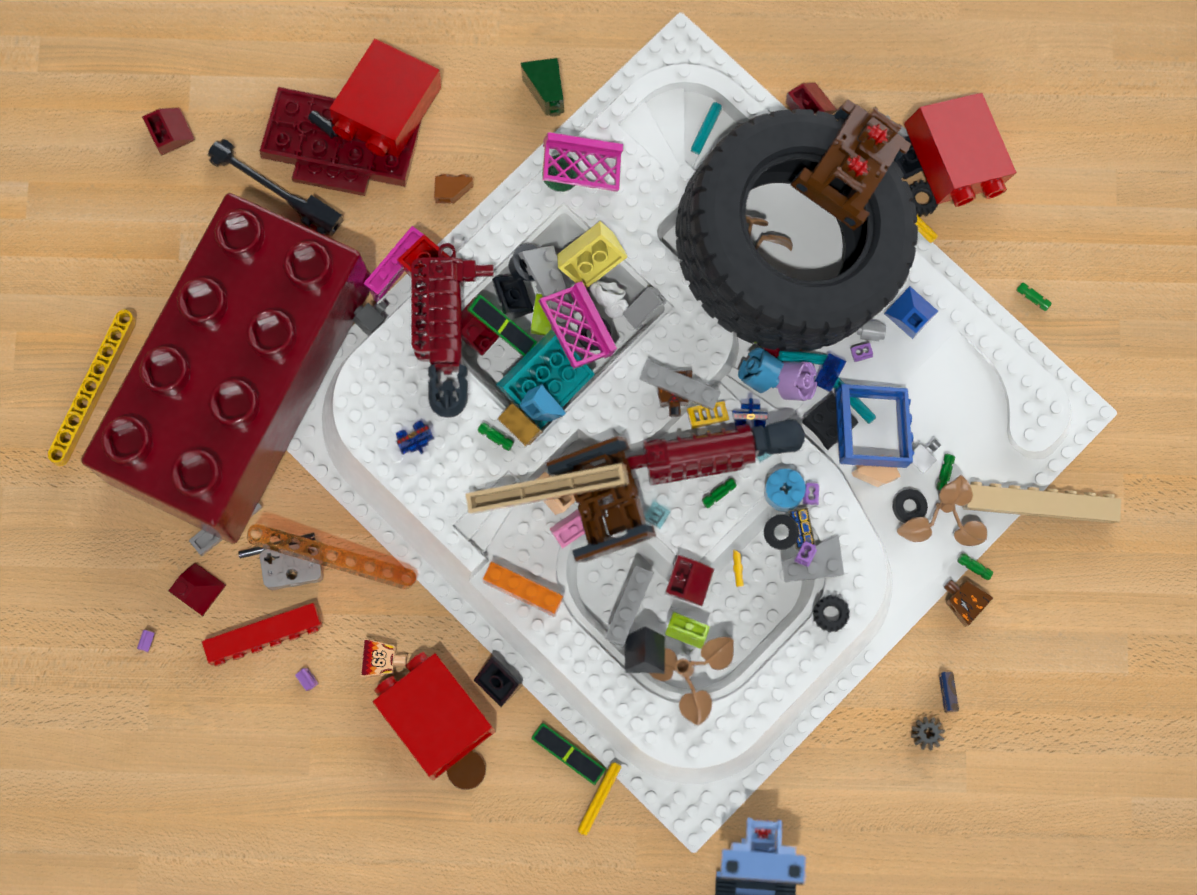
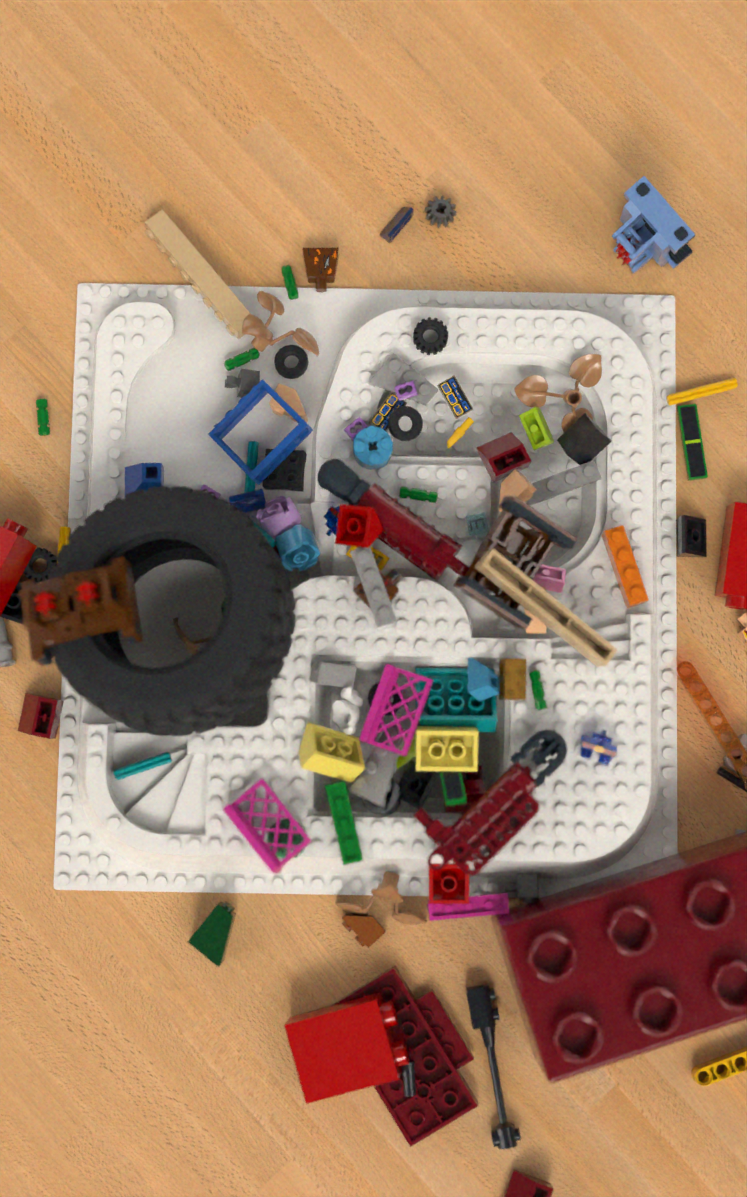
camera: 140 degrees left, 5 degrees up
(463, 226) = (389, 891): none -> medium nougat plant
(517, 335) = (446, 748): none -> light yellow slope
(534, 219) = (344, 823): none -> green tile
(654, 562) = (516, 485): none -> light nougat slope
(733, 414) = (357, 526): none -> red slope
(767, 589) = (455, 397): none -> tile

